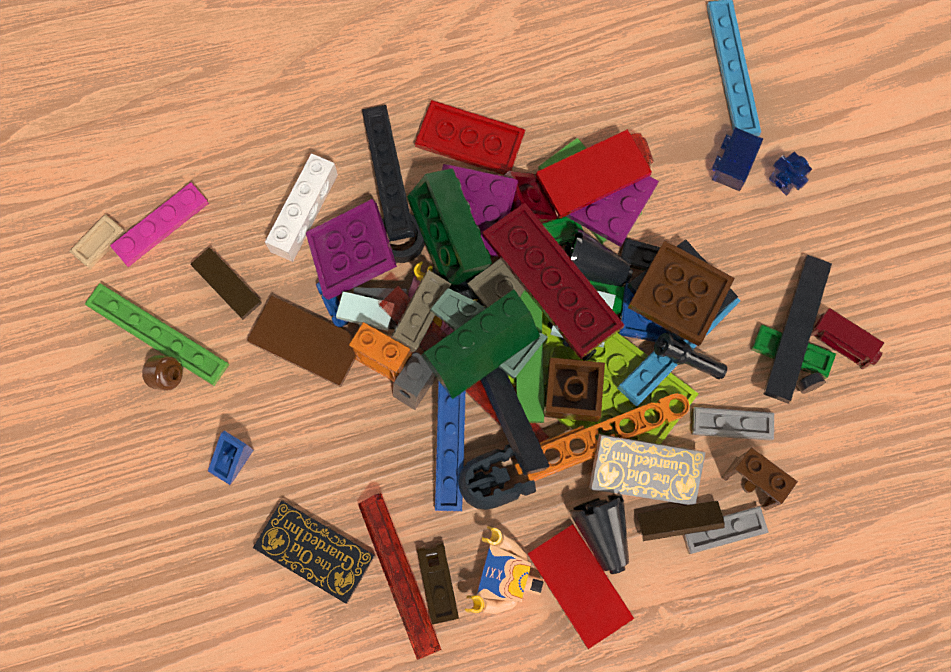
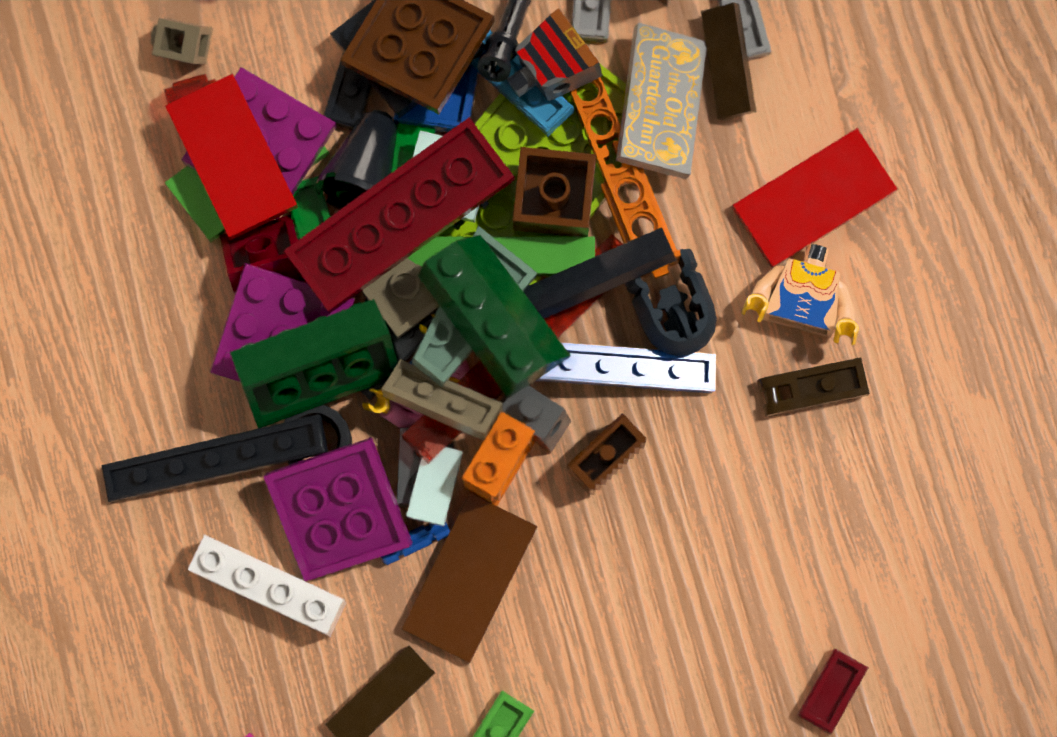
camera: 90 degrees left, 5 degrees up
(217, 596) = (832, 691): none -> dark red tile
(229, 457) = (643, 680): blue slope -> none
(314, 552) = (771, 558): black tile -> none
(386, 430) = (606, 454): none -> reddish brown brick
(399, 576) = (804, 439): clear red tile -> none
(470, 138) = (158, 340): red tile -> none
(604, 531) = (741, 161): black cone -> none
(671, 387) = (554, 60): none -> torso
(675, 144) = (195, 42): none -> dark tan brick

